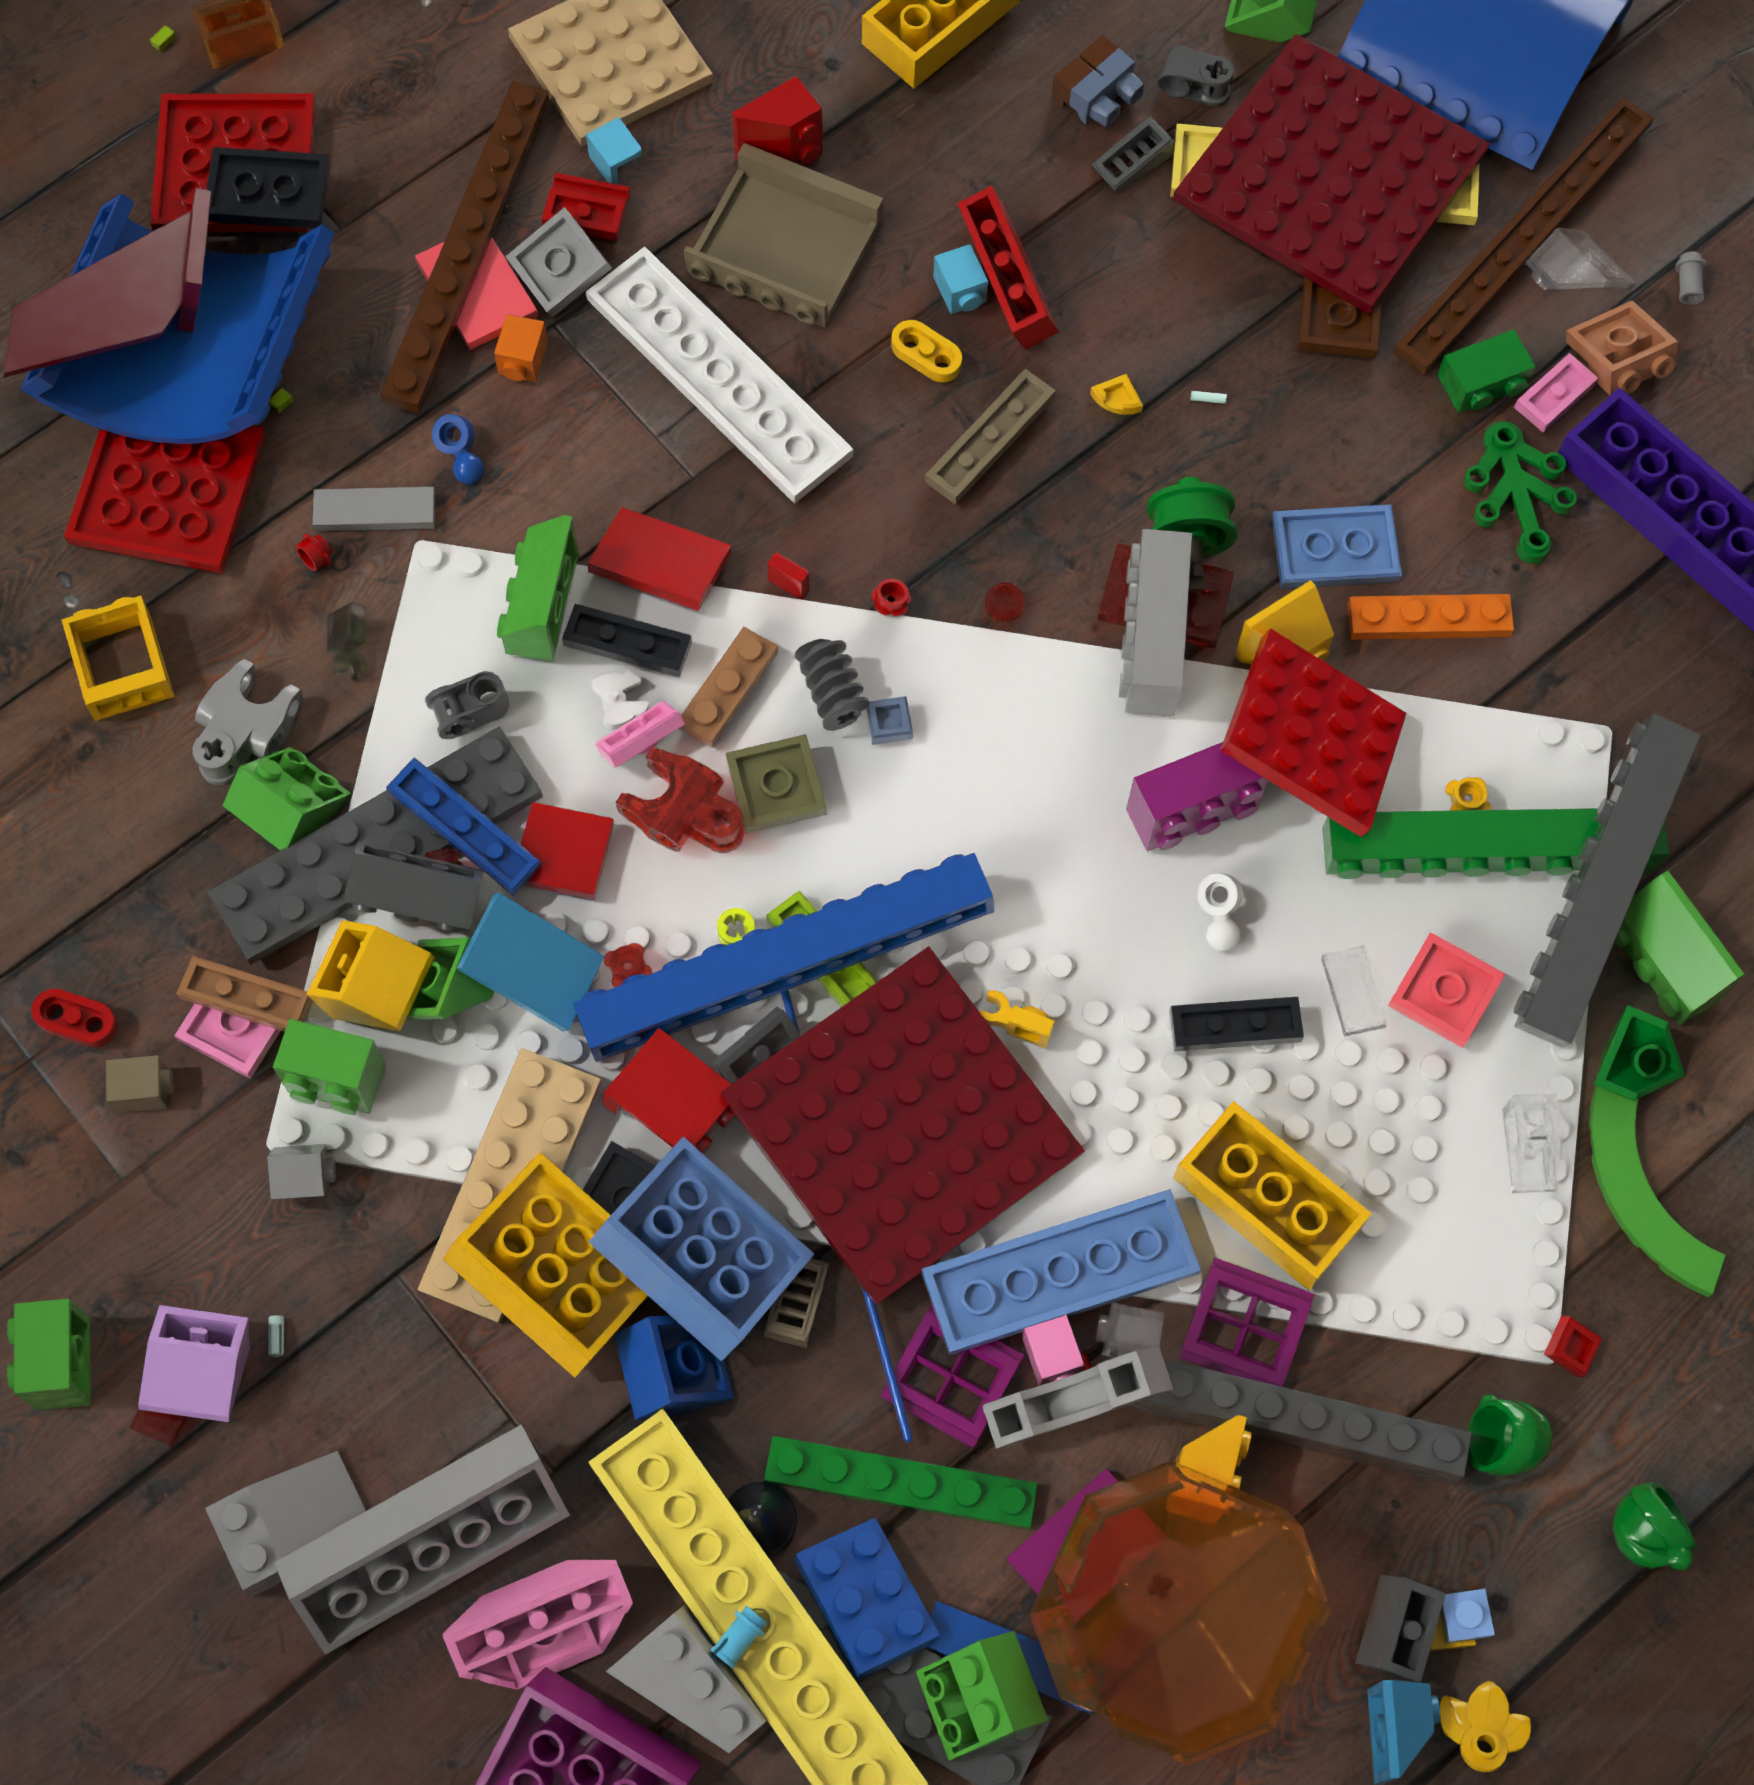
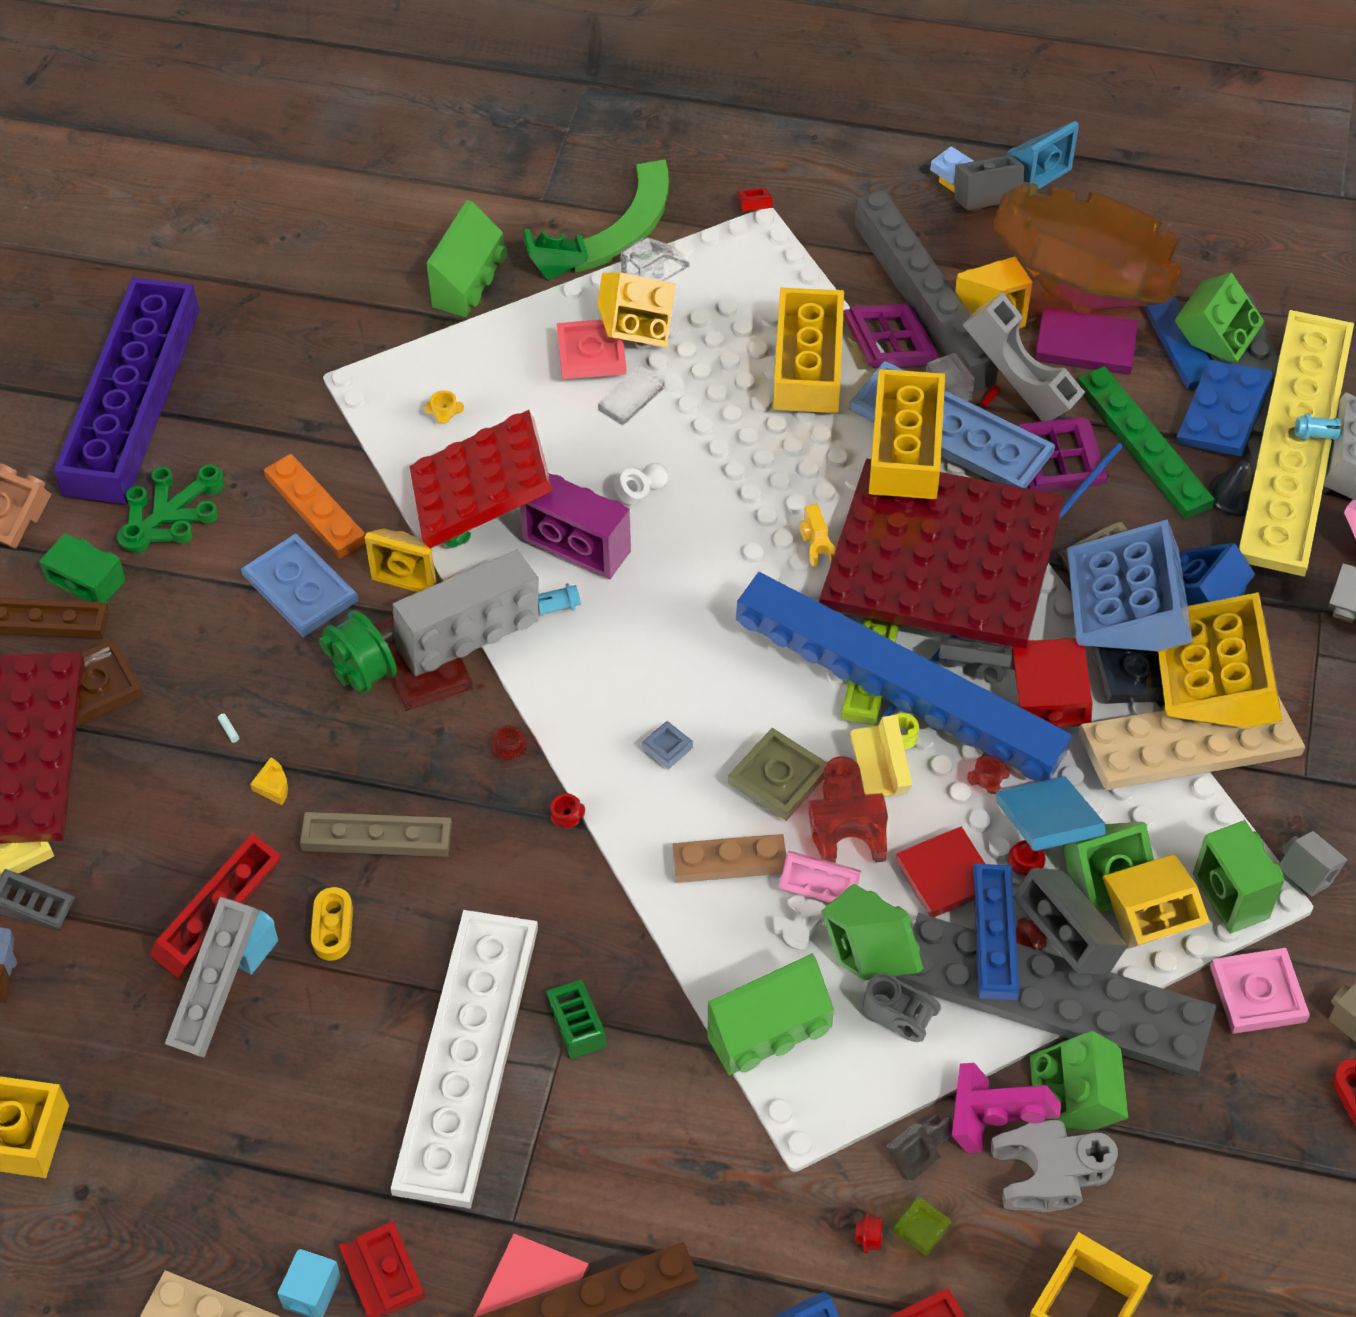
camera: 125 degrees left, 15 degrees down
(243, 994) = (1240, 987): medium nougat tile -> none
(288, 598) = (922, 1226): none -> clear neon green tile
(329, 700) = (996, 1107): none -> dark pink bracket
(374, 509) = (794, 1222): light grey tile -> none
(467, 466) = (697, 1182): blue plate -> none
(521, 348) = (562, 1214): orange brick -> none
(539, 709) = (871, 935): none -> bright green slope
(558, 262) = (457, 1243): light grey plate -> none
(627, 640) = (750, 933): black plate -> none
(659, 558) = (664, 977): red tile -> none
(688, 462) = (583, 1043): none -> green slope
(714, 876) = (882, 758): none -> light yellow panel
(782, 123) = (191, 1152): red slope -> none
(786, 236) = (299, 1099): dark tan panel -> none
(788, 576) = (606, 882): red tile -> none
(831, 682) = (673, 784): dark grey piece -> none
(935, 222) = (212, 977): none -> light grey plate
(1052, 1350) = (1002, 402): bright pink brick -> none
(1059, 1177) = (907, 434): none -> yellow brick
(1125, 744) = (559, 599): none -> medium azure pin
(1236, 1023) = (711, 433): black plate -> none
(1462, 1057) = (636, 308): none -> yellow slope
(1468, 843) = (459, 363): green brick -> none
(1487, 1720) = (997, 135): yellow plate -> none
(1508, 1437) = (835, 194): green piece -> none
(1556, 392) = (84, 524): bright pink plate -> none
(1606, 880) = (454, 291): dark grey brick -> none
(1653, 1529) = (828, 117): green piece -> none

